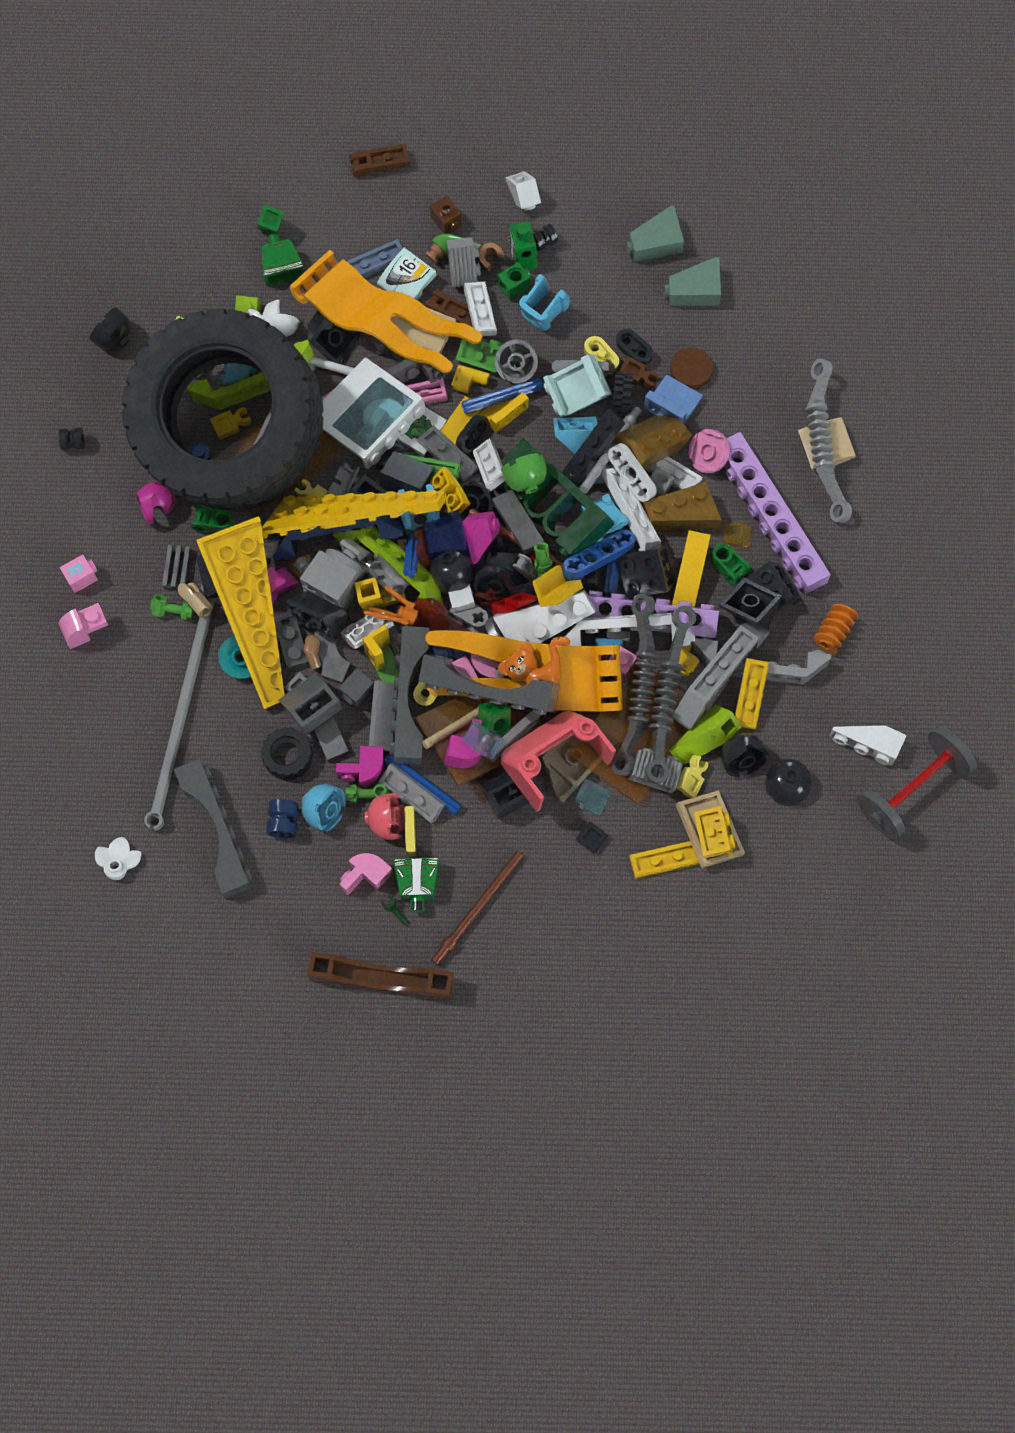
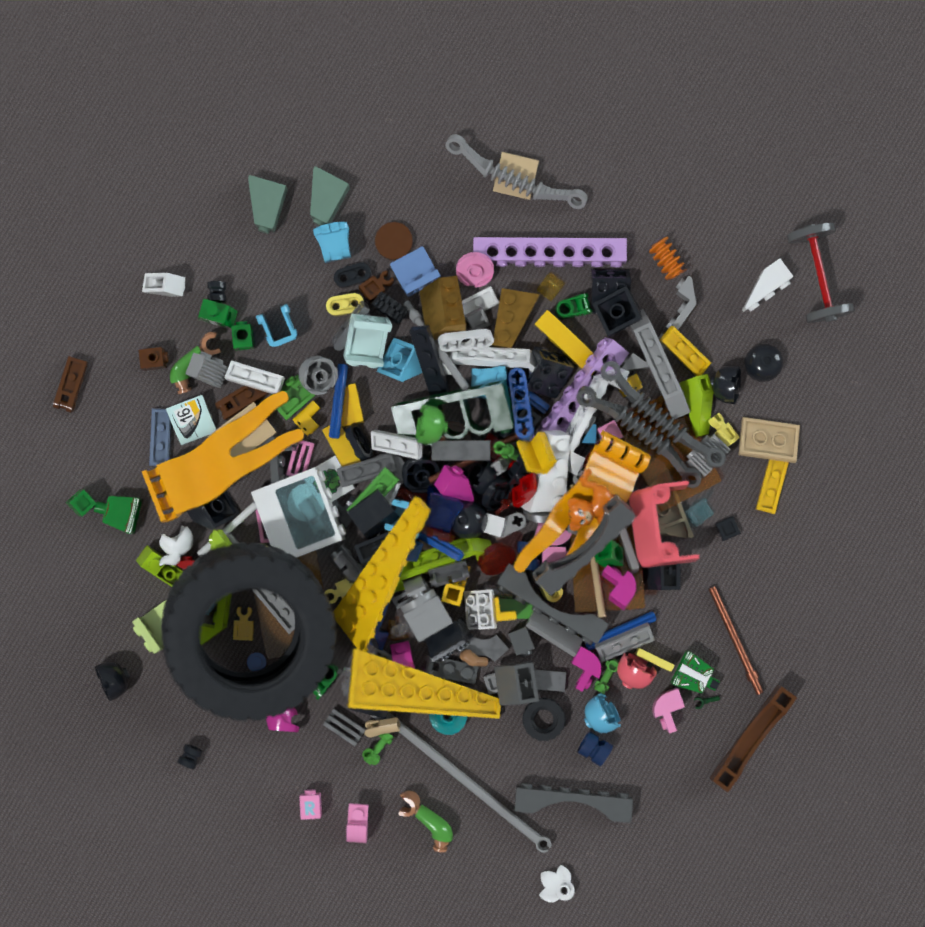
camera: 60 degrees left, 15 degrees up
(118, 707) = (439, 828): none -> piece
(405, 615) = (488, 575): orange plant -> none
(456, 497) = (403, 487): yellow slope -> none
(483, 740) = (627, 573): clear light blue panel -> none
(656, 310) = (333, 241): none -> medium azure piece
(714, 832) = (778, 440): yellow bracket -> none

